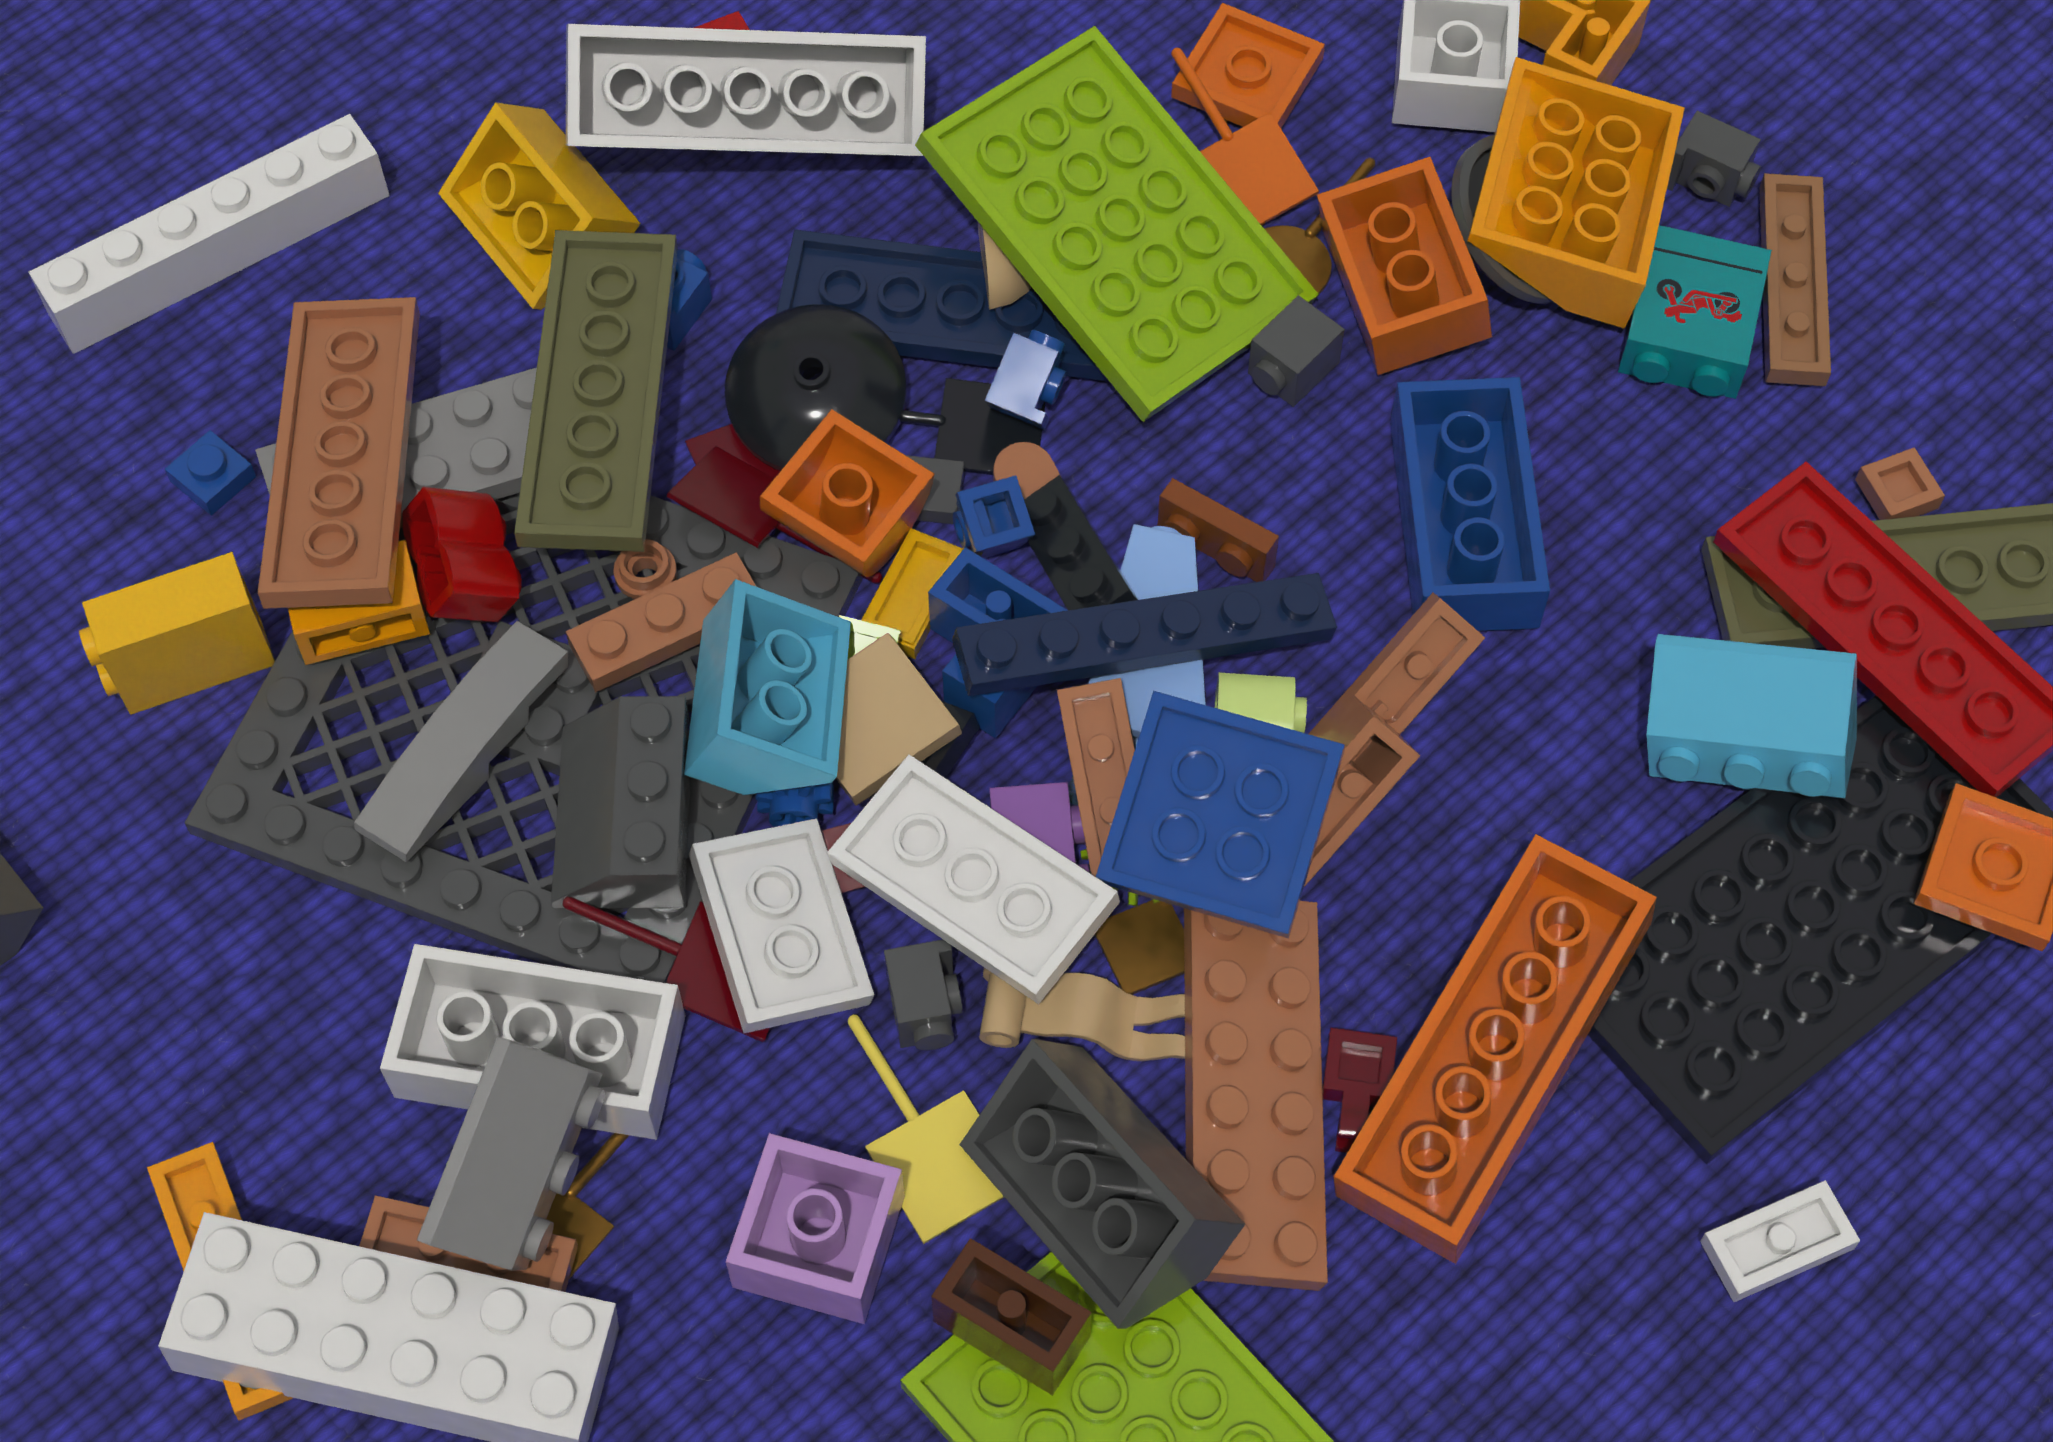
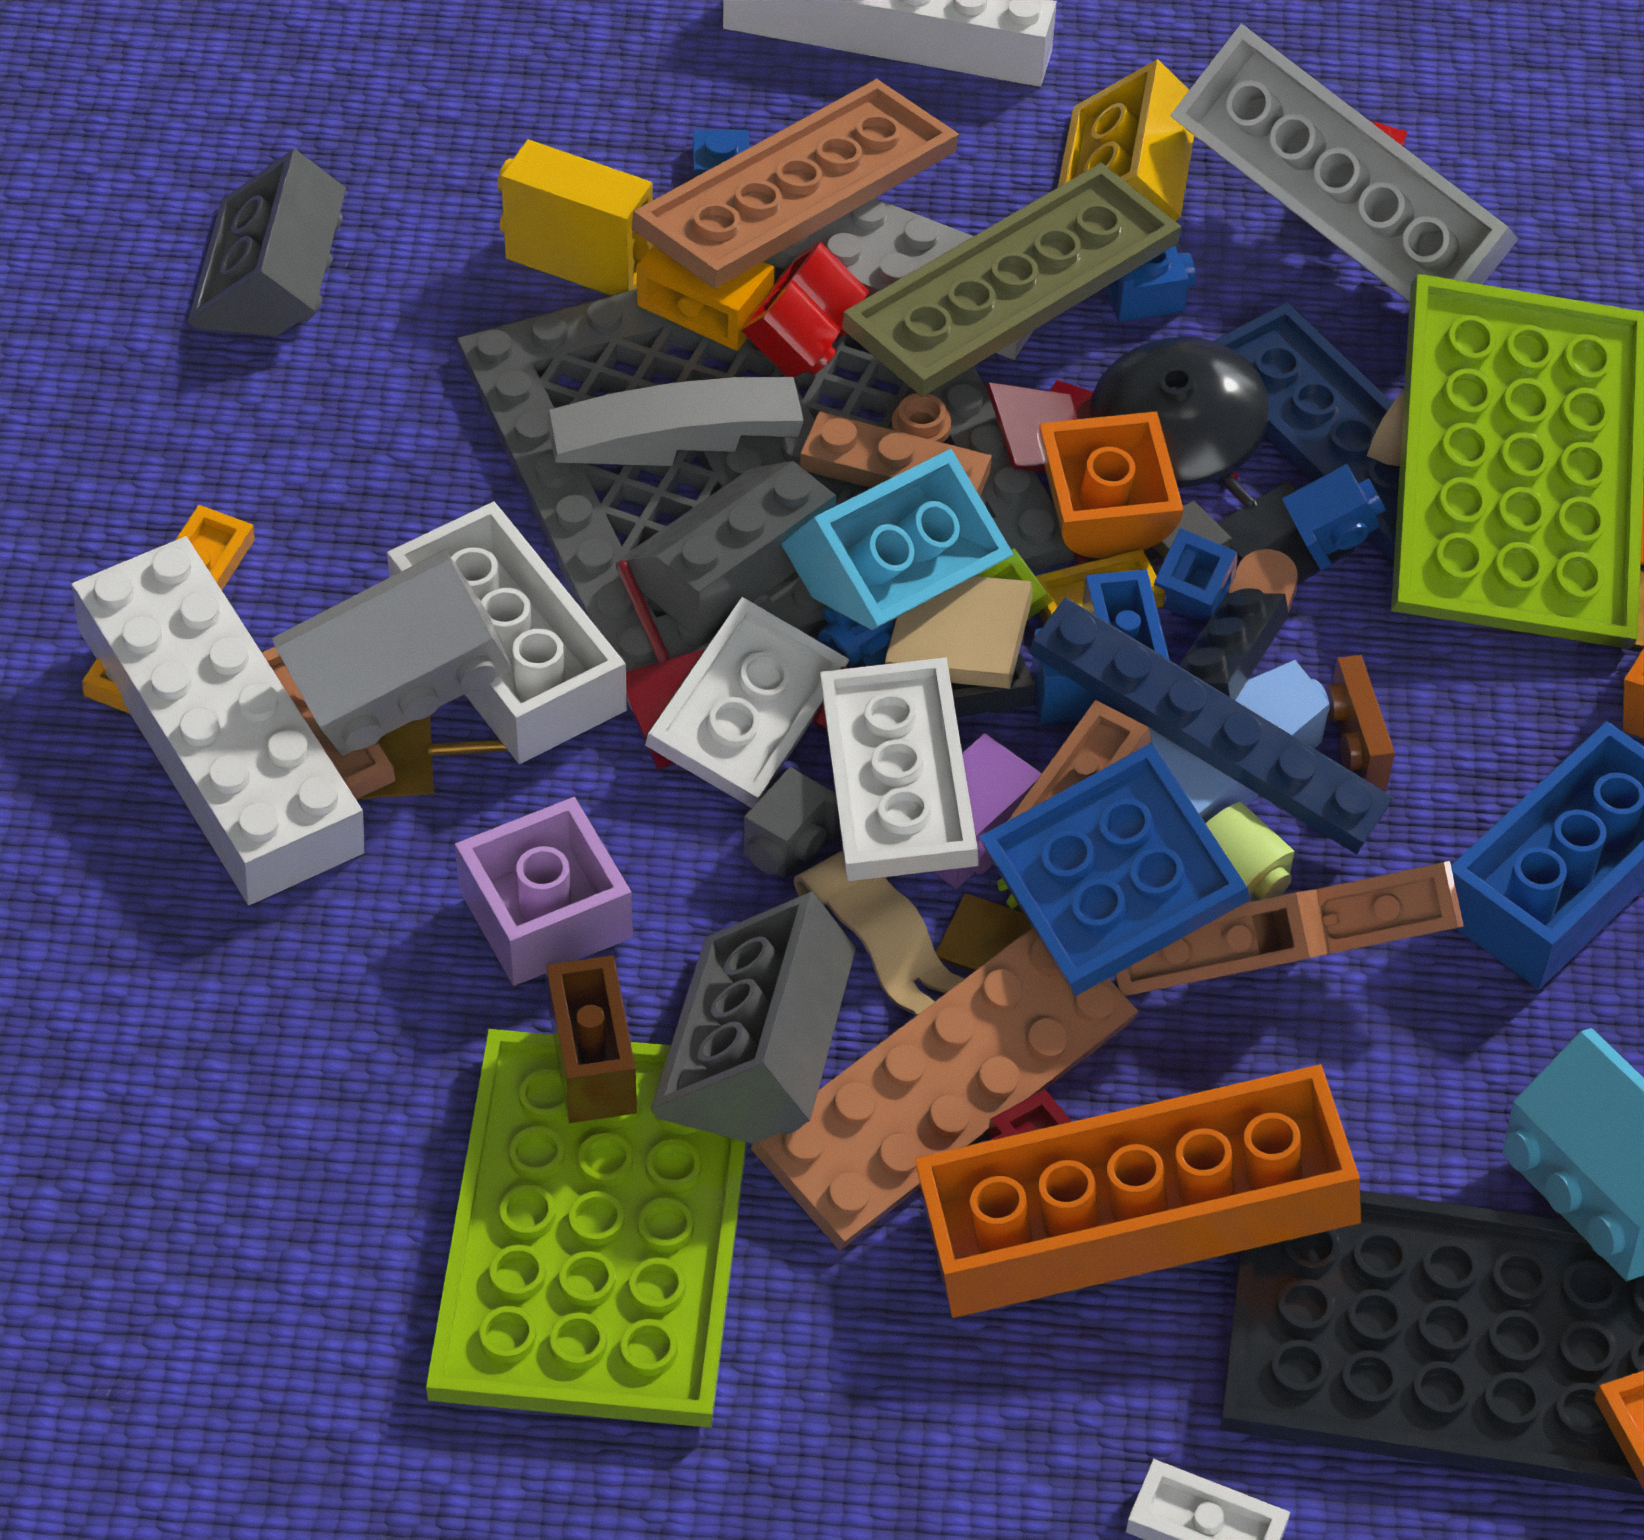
camera: 45 degrees right, 10 degrees down
(937, 1173) = (674, 926): light yellow piece -> none
(1295, 351) = (1569, 660): dark grey brick -> none

